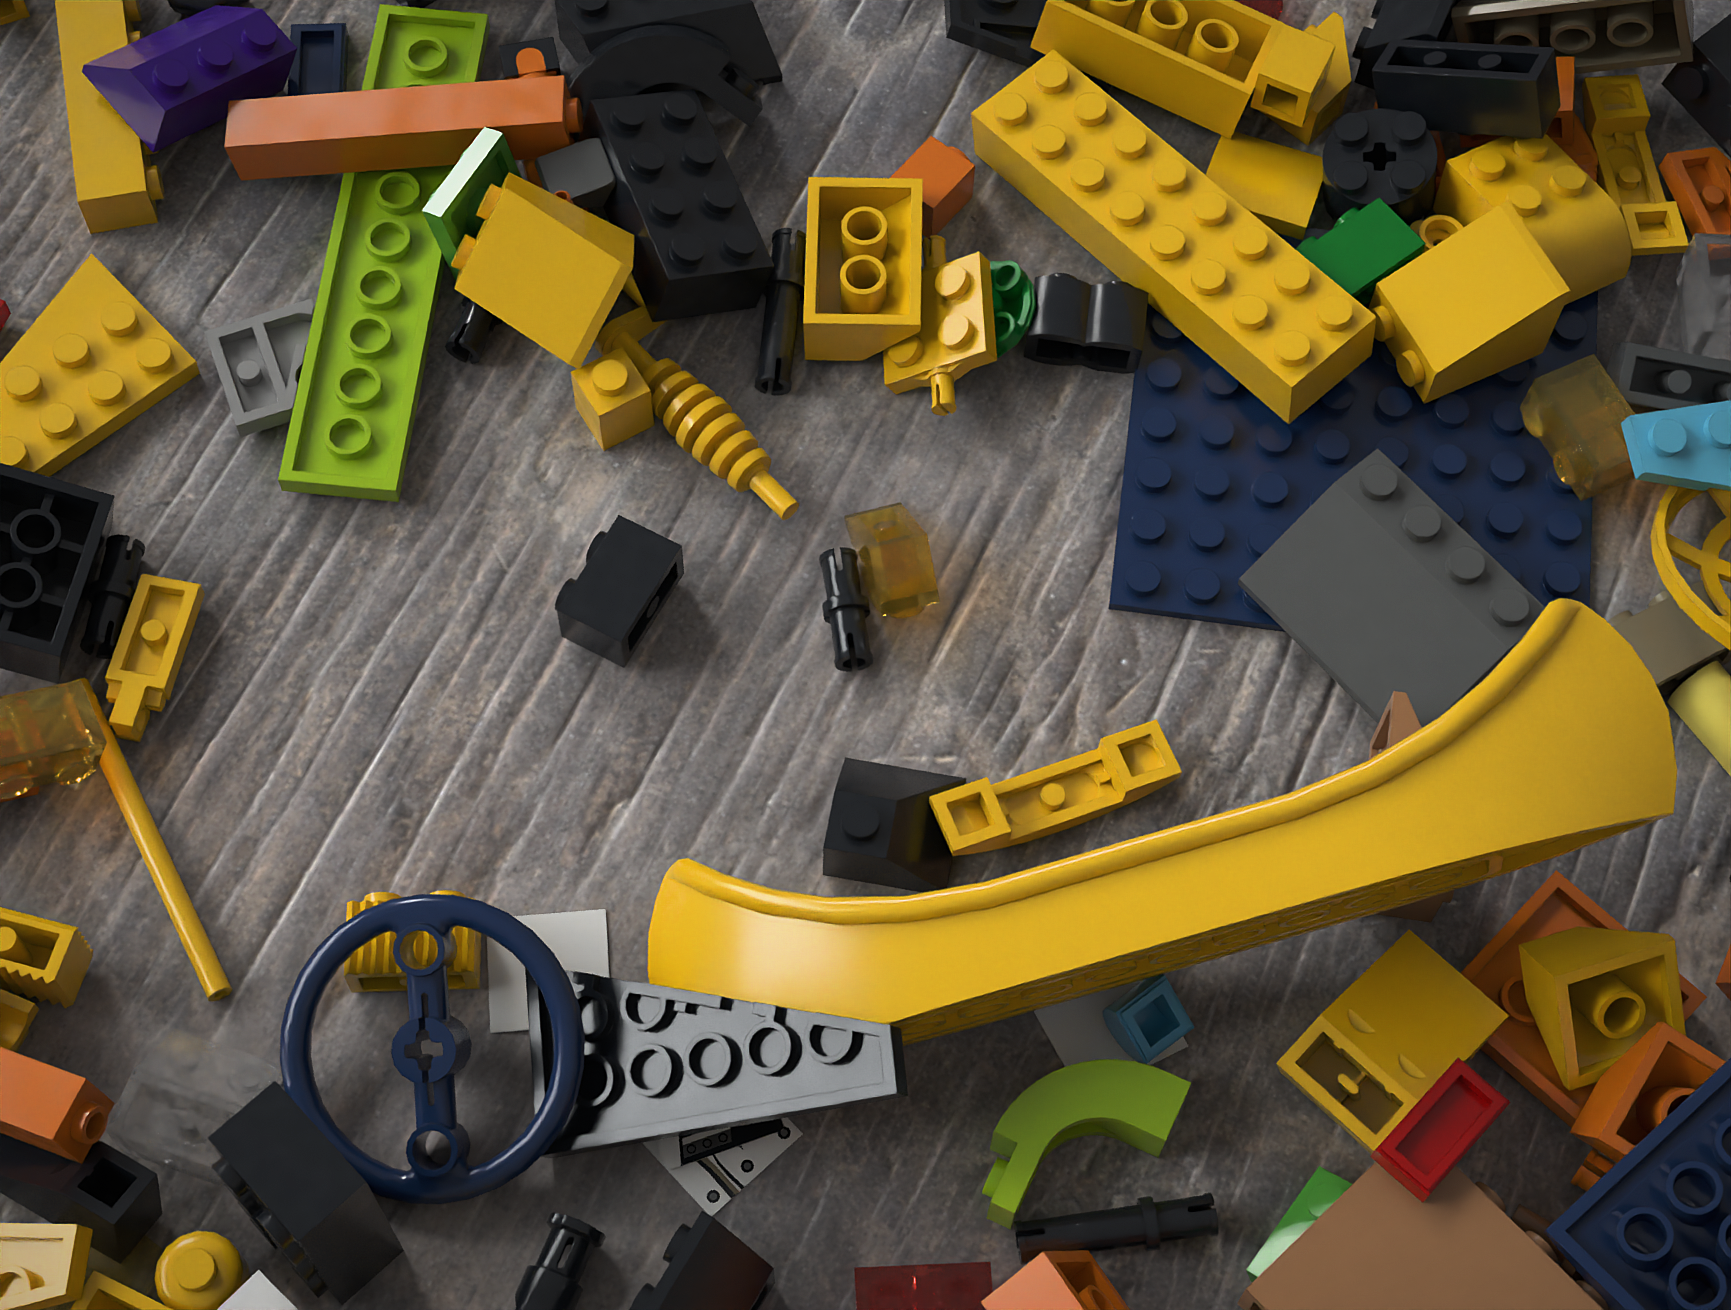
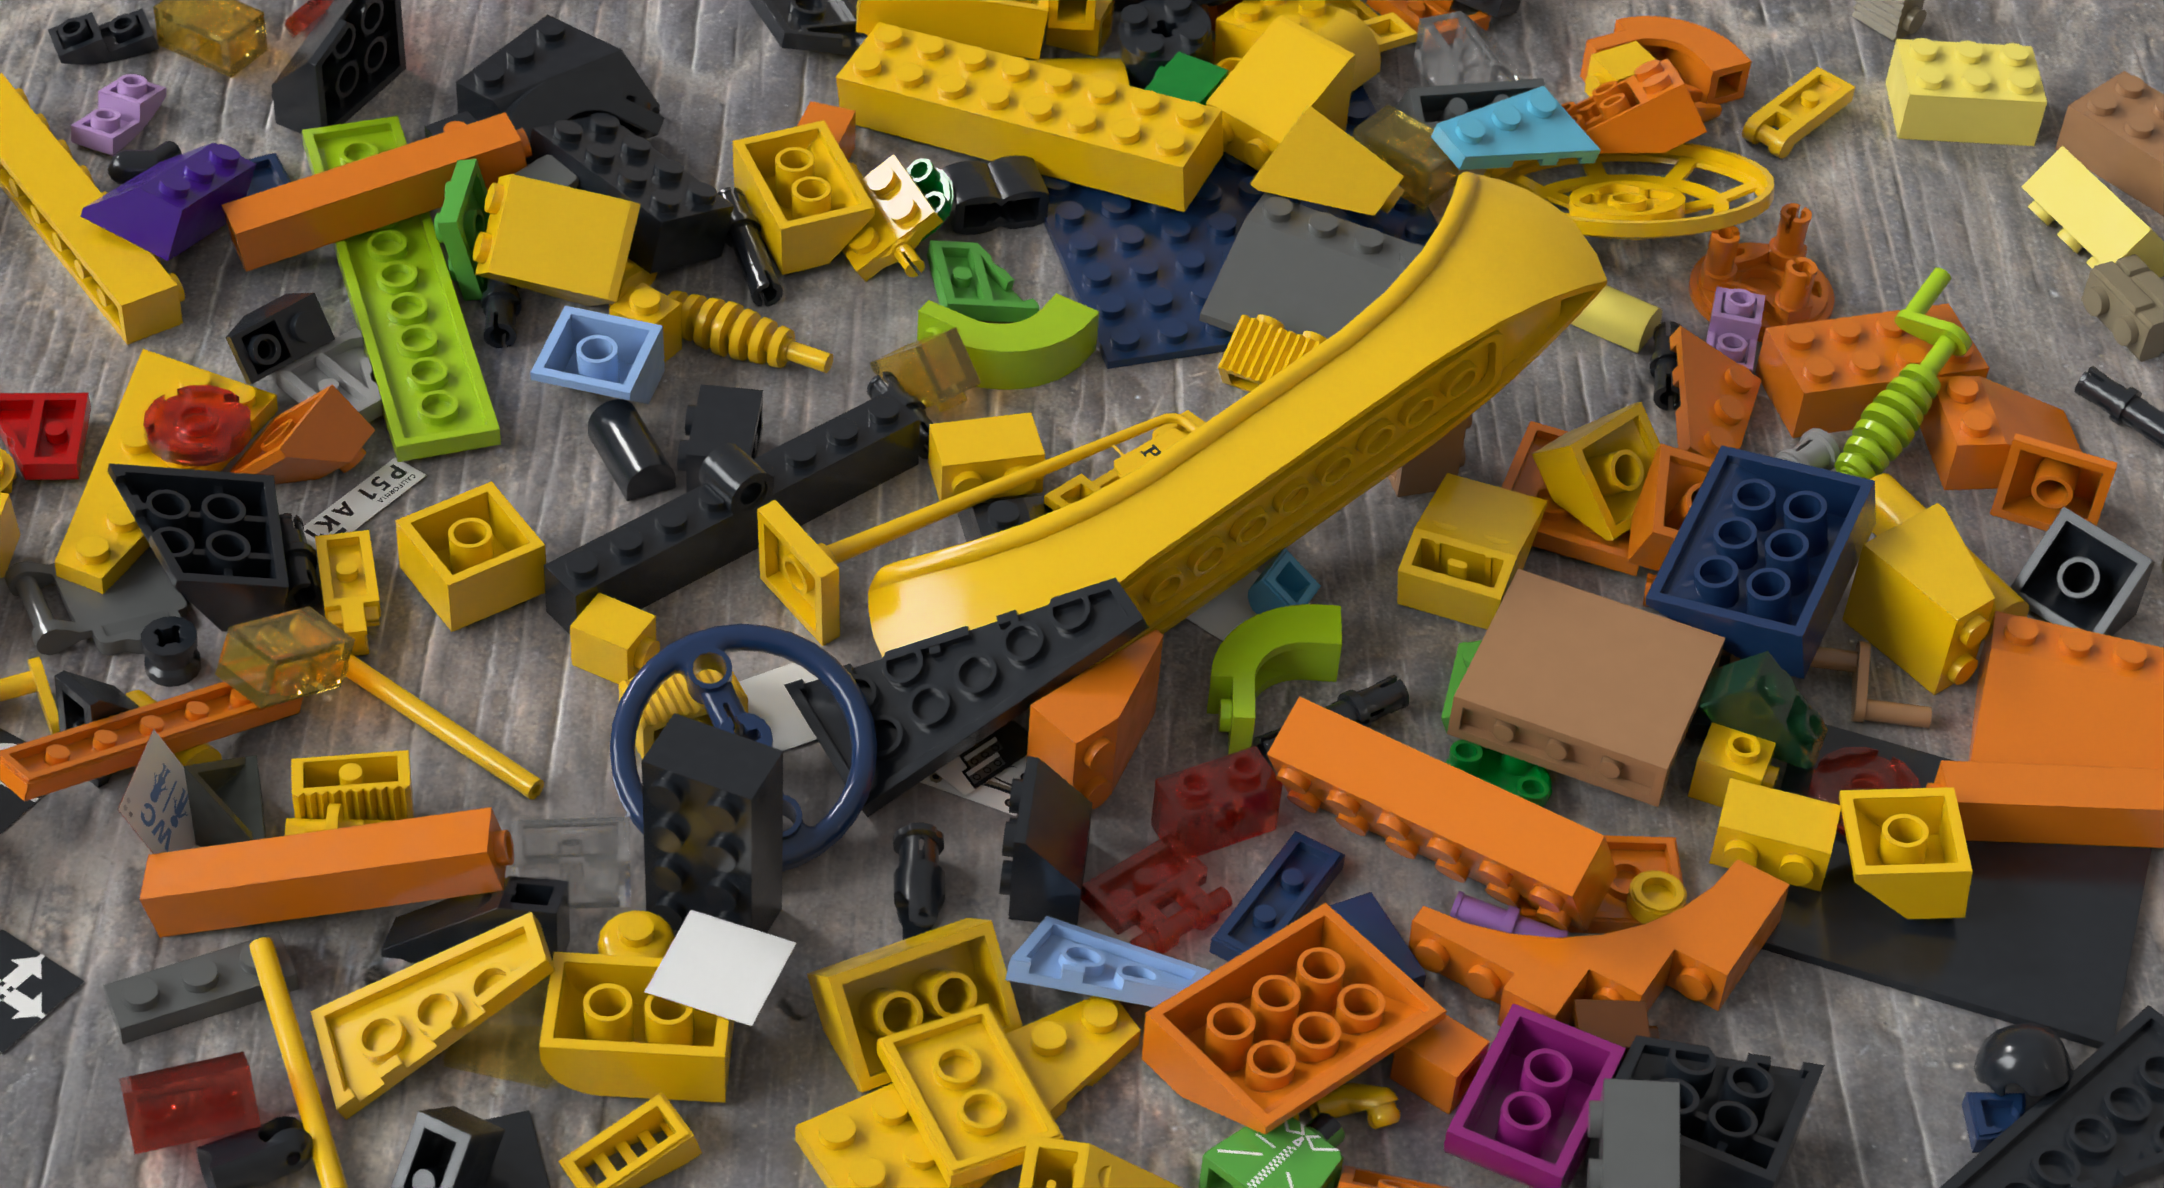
camera: 25 degrees left, 20 degrees down
(83, 389) = (197, 426): none -> clear red tile
(186, 441) = (309, 440): none -> orange slope
(215, 290) = (278, 334): none -> black slope
(223, 532) = (364, 500): none -> white sticker
(279, 664) = (471, 556): none -> yellow brick
(383, 826) = (613, 639): none -> yellow brick
(527, 559) = (629, 450): none -> black brick
(533, 439) = (602, 355): none -> light blue slope
(586, 694) = (720, 517): none -> black hinge
(821, 1163) = (1098, 719): none -> orange slope
(894, 714) = (983, 450): none -> yellow brick
(1005, 449) = (974, 284): none -> bright green wing
(1008, 567) = (1023, 351): none -> lime arch
(1048, 819) = (808, 575): none -> yellow piece
(1294, 686) = (1261, 350): none -> yellow brick
(1440, 1129) = (1539, 561): red tile -> none
(1468, 440) = (1328, 168): none -> yellow slope

